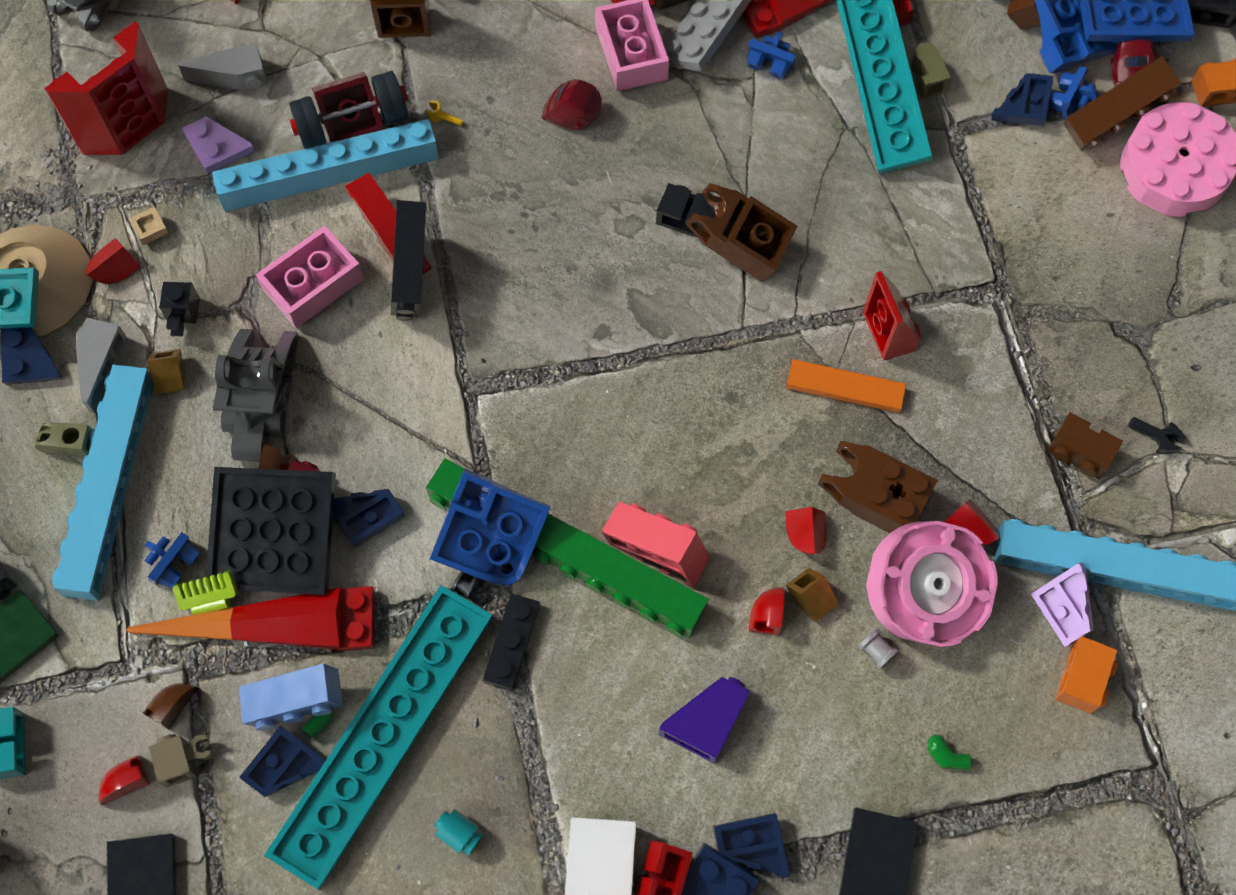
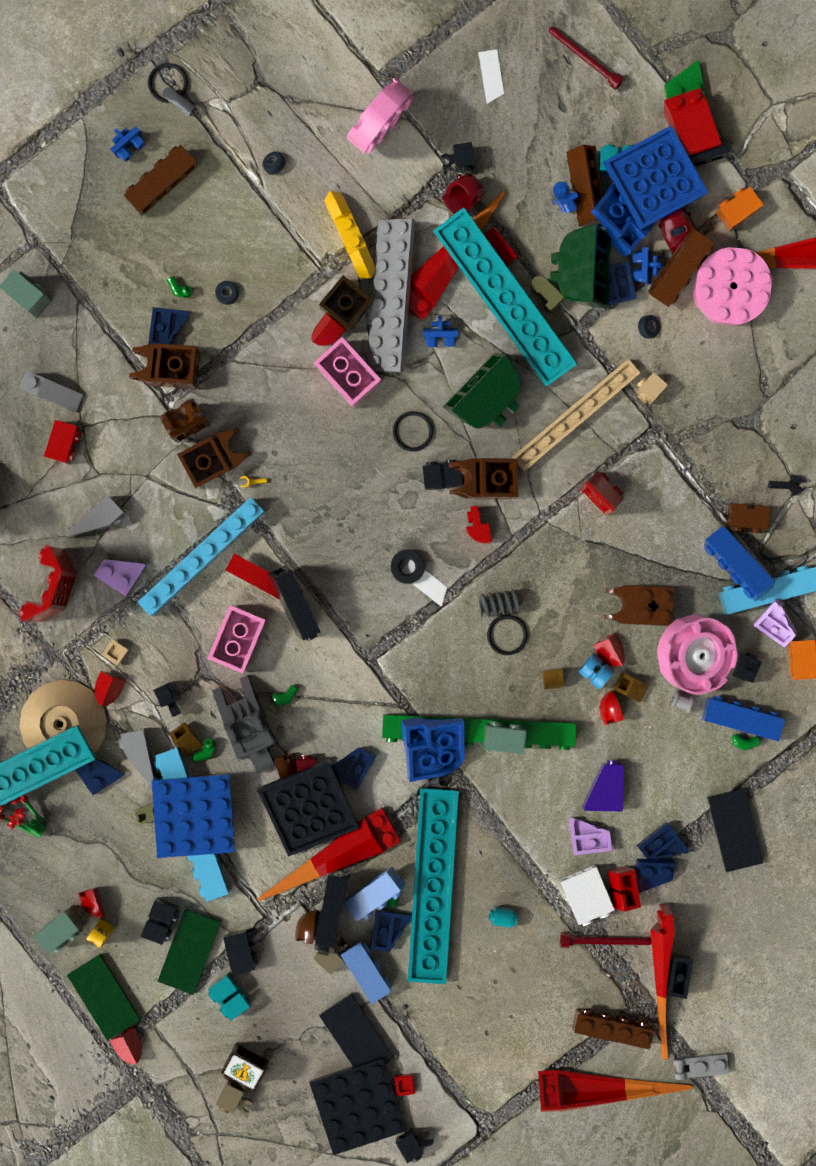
camera: 25 degrees left, 20 degrees up
(55, 686) = (239, 951): none -> black piece
(110, 463) = (193, 816): none -> blue plate
(122, 780) = (306, 979): red brick -> none
(179, 549) = (258, 859): blue hips -> none
(184, 402) = (207, 752): none -> green arm
(207, 688) = (330, 915): none -> black brick
(210, 600) = (294, 862): lime piece -> none
(214, 809) = (366, 971): none -> medium blue brick
(327, 382) = (285, 698): none -> green arm
(348, 108) = (196, 516): brick -> none
(413, 59) = (217, 452): none -> reddish brown brick
(511, 642) = (476, 798): black plate -> none
(573, 105) = (331, 435): dark red helmet -> none
(583, 282) = (407, 578): none -> black tyre
(594, 557) = (504, 738): none -> sand green brick
(596, 330) = (428, 584): none -> white sticker
(646, 778) = (588, 838): none -> lavender wing
(657, 540) = (529, 702): coral wedge -> none
(677, 128) = (410, 448): none -> black tyre
(681, 395) = (499, 603): none -> dark grey piece
(690, 427) = (524, 635): none -> black tyre
(699, 294) = (477, 532): none -> red brick
(709, 525) = (553, 678): none -> pearl gold brick
(772, 544) = (599, 677): none -> dark azure wheel
(795, 138) = (487, 394): none -> dark green hips
(846, 386) = (591, 545): orange tile -> none
(900, 220) = (576, 415): none -> tan plate
(960, 717) = (743, 719): none -> blue brick
(973, 519) = (703, 599): red brick -> none
(994, 53) = (584, 266): none -> dark green hips
(996, 646) = (747, 667): none -> black brick
(1018, 231) = (650, 388): none -> tan brick
(1039, 164) = (643, 326): none -> black wheel
(1047, 494) = (739, 564): none -> blue brick

